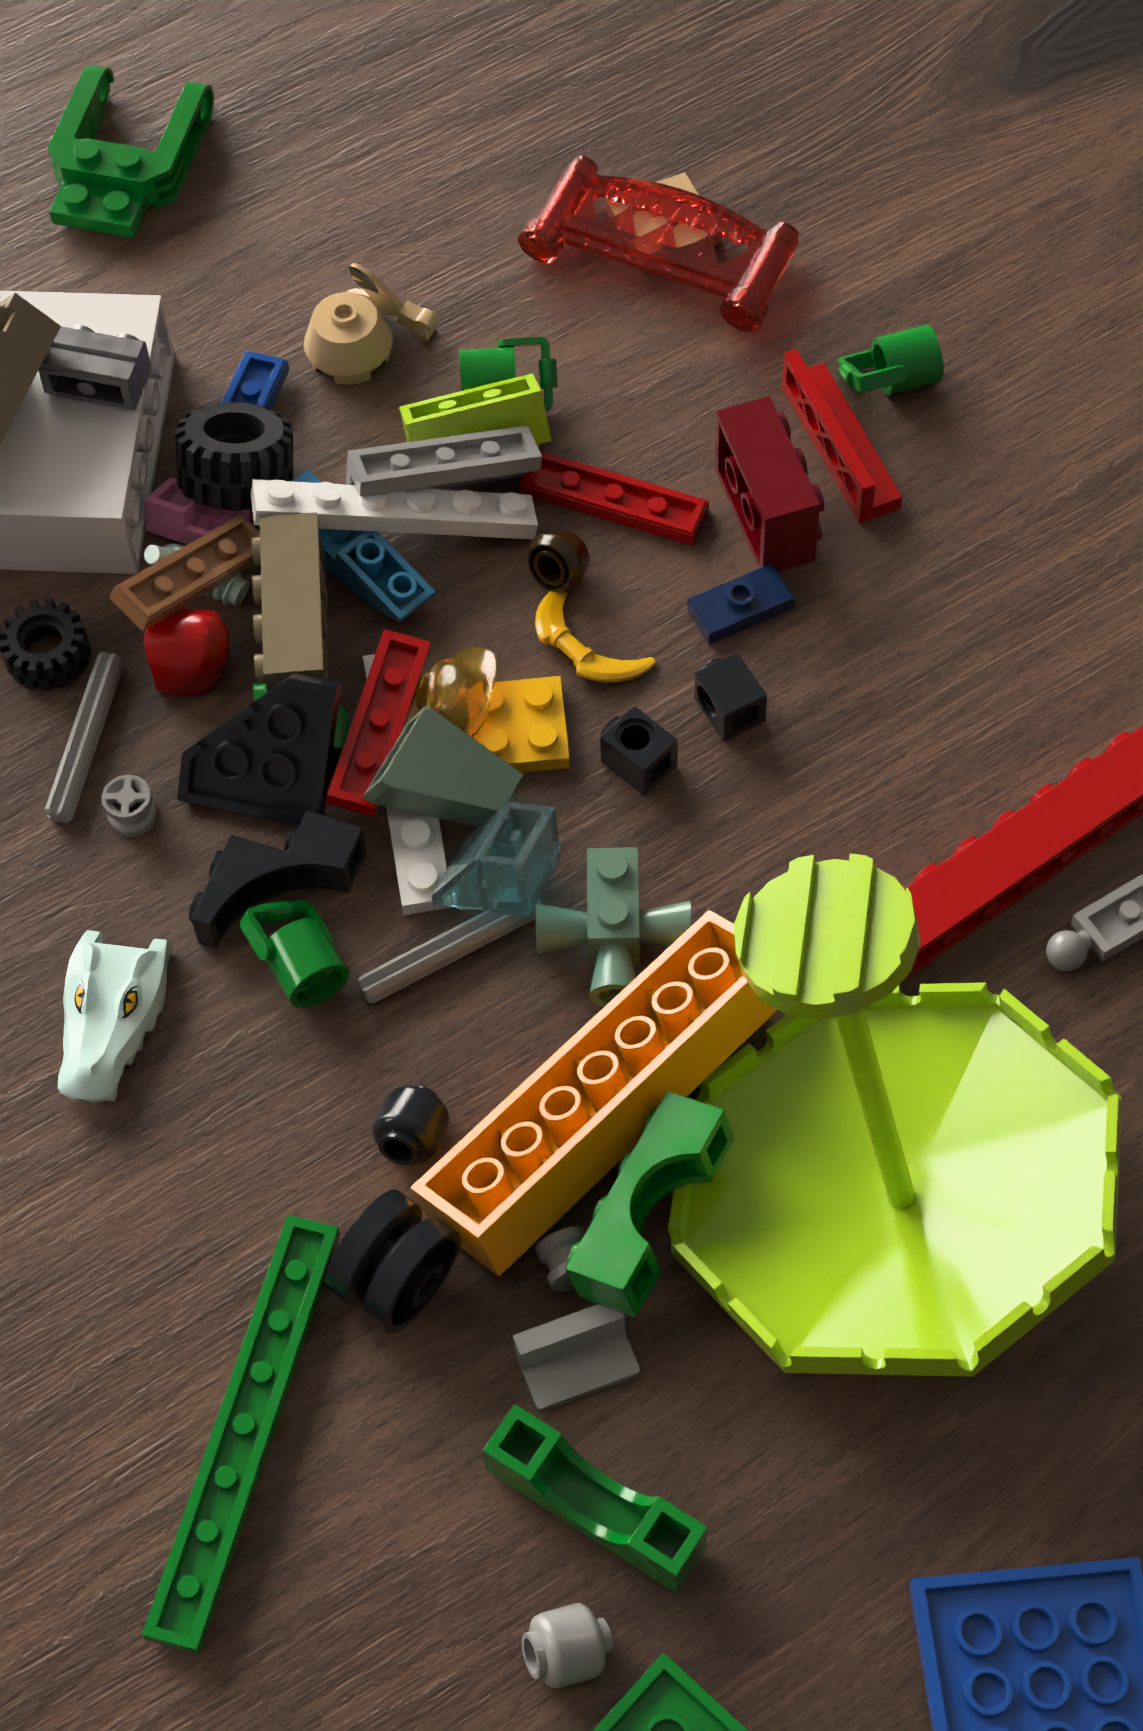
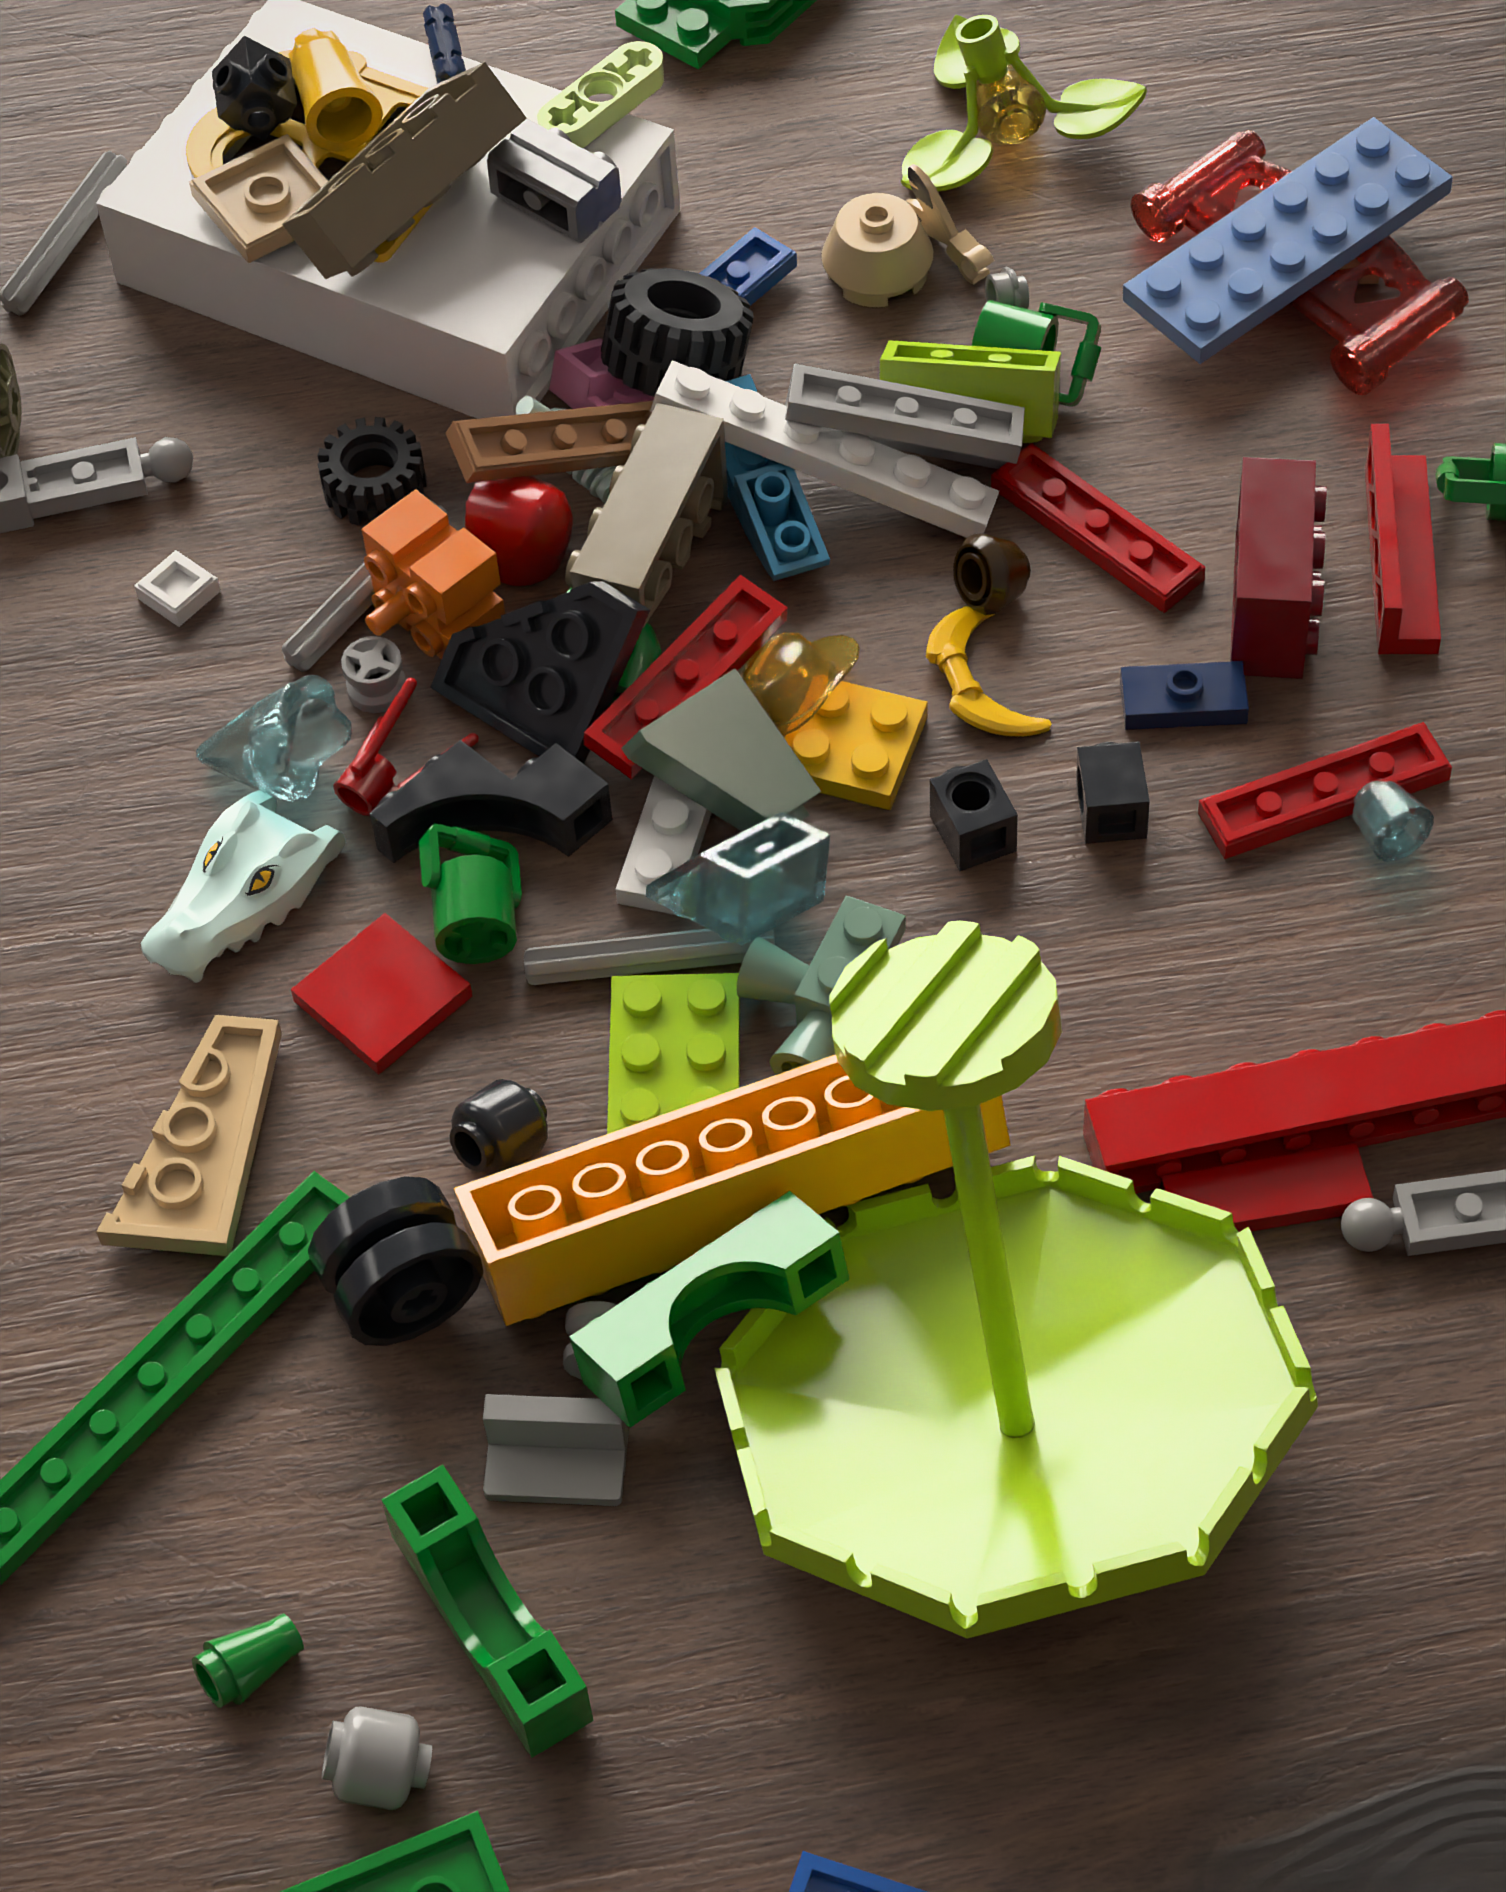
camera: 25 degrees right, 5 degrees down
(85, 887) = (281, 740): none -> clear light blue hat
(93, 270) = (628, 74): none -> yellowish green beam
(143, 714) = (428, 574): none -> orange brick
(166, 889) = (371, 774): none -> red plant
(190, 1246) = (203, 1148): none -> tan wing
(262, 1054) = (381, 993): none -> red tile
(355, 157) = (981, 52): none -> lime plant
(389, 191) = (1009, 109): none -> clear yellow head
(426, 1615) = (245, 1659): none -> green cone
(459, 337) = (1007, 288): none -> light grey plate
(505, 1014) = (670, 1043): none -> lime plate
(650, 232) = (1286, 239): none -> medium blue plate
(873, 639) = (1320, 789): none -> red tile
(934, 644) = (1391, 820): none -> clear light blue hat
(989, 948) = (1278, 1188): none -> red tile

